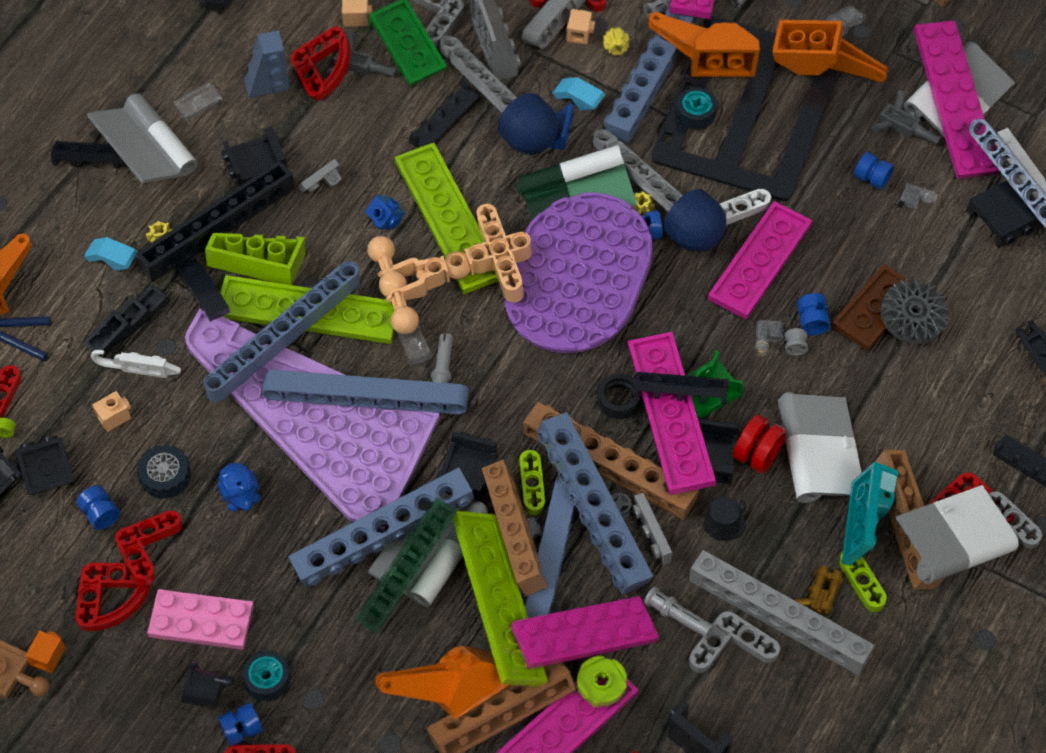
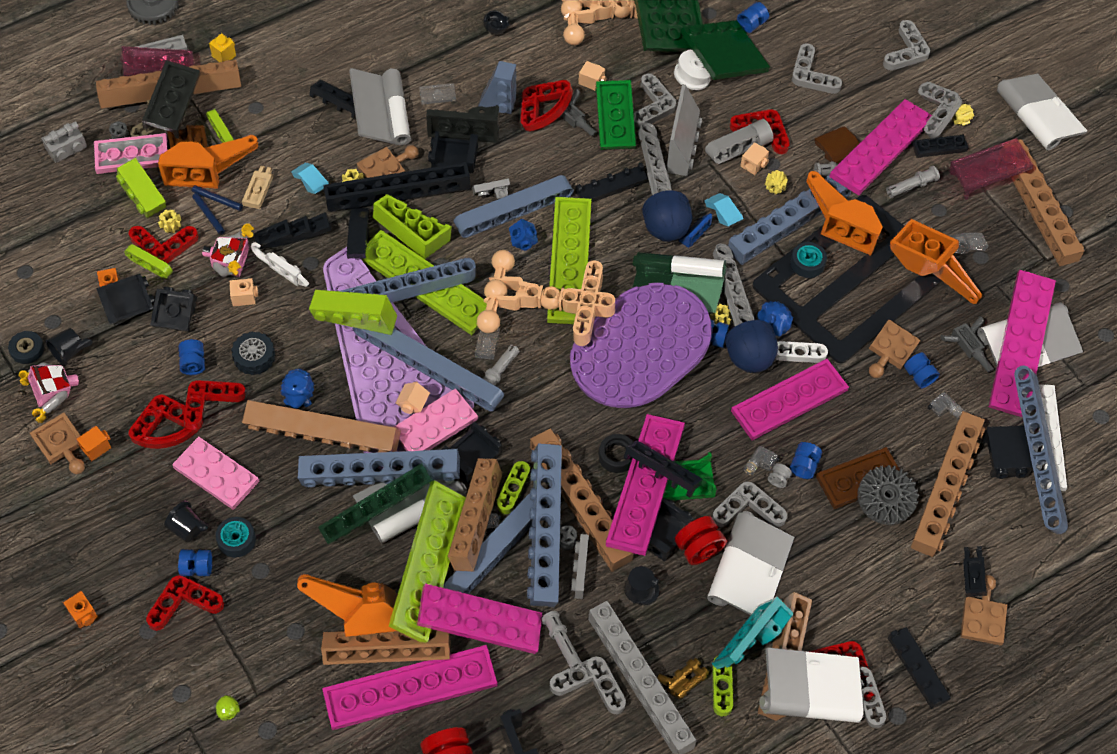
camera: 25 degrees right, 0 degrees up
(57, 291) = (258, 188): none -> tan hinge
(70, 374) = (230, 252): none -> torso
(185, 203) = (385, 163): none -> medium nougat plate
(250, 122) = (462, 124): none -> pearl dark grey plate
(258, 371) = (355, 310): none -> lime wedge
(291, 514) = (320, 426): none -> medium nougat brick
(353, 187) = (512, 206): none -> sand blue beam
(374, 437) = (412, 398): none -> light nougat brick
(411, 453) = (436, 422): none -> bright pink piece
(598, 694) = (463, 671): lime plate -> none
(699, 178) = (777, 316): none -> blue animal
(776, 382) = (746, 500): none -> light grey beam
(832, 159) = (892, 345): none -> medium nougat plate
(971, 340) = (923, 540): none -> medium nougat brick

